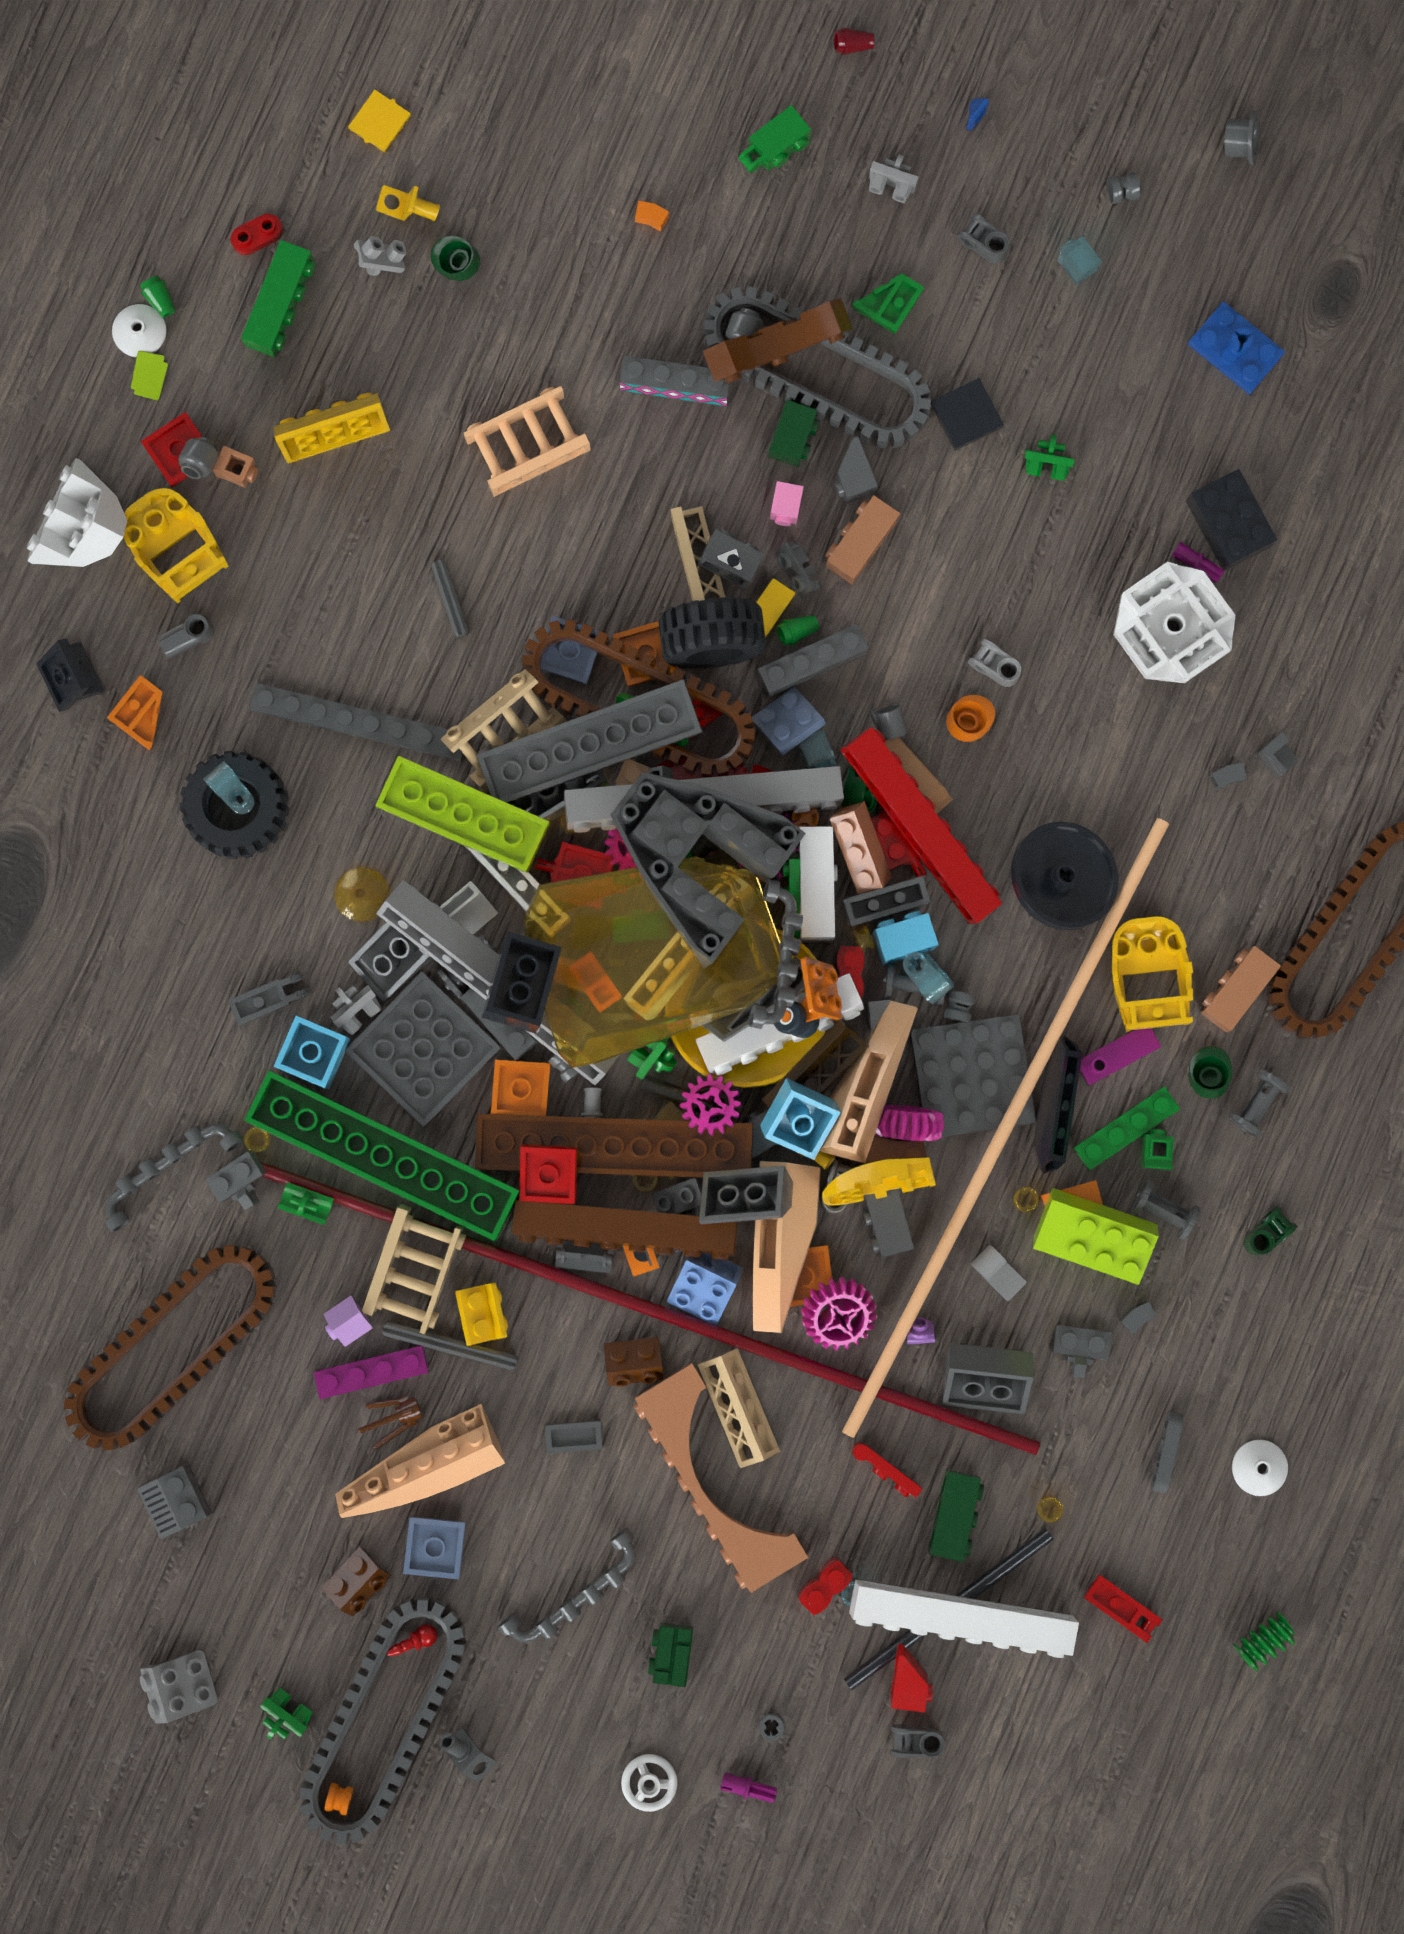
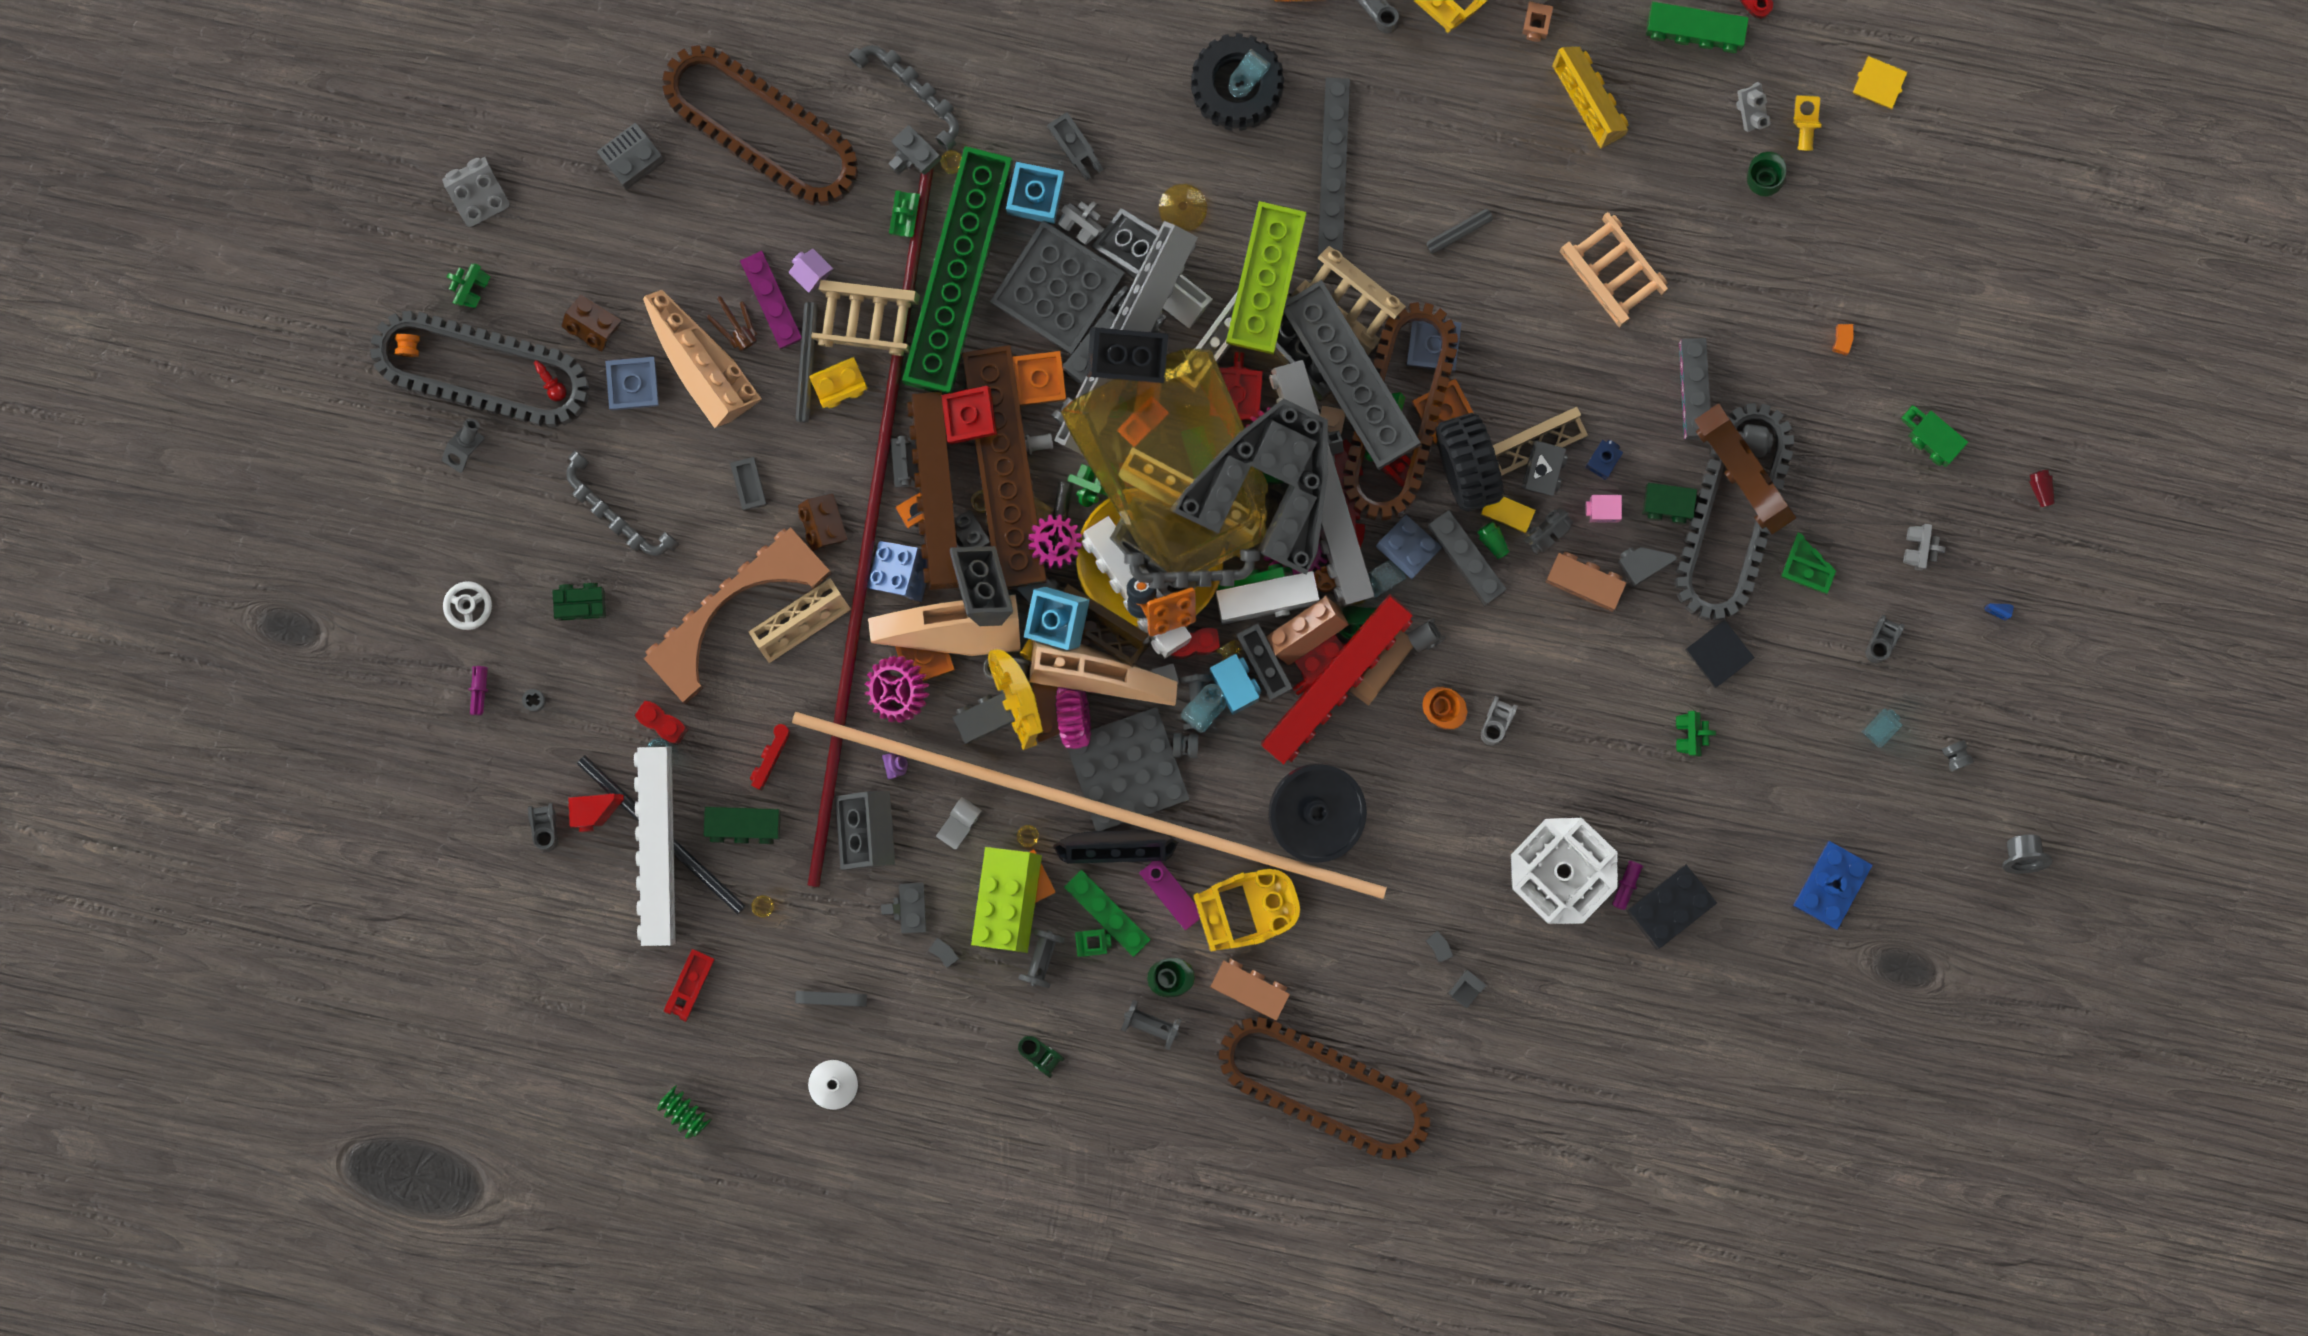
camera: 85 degrees right, 0 degrees up
(732, 493) = (1604, 458): none -> dark blue brick

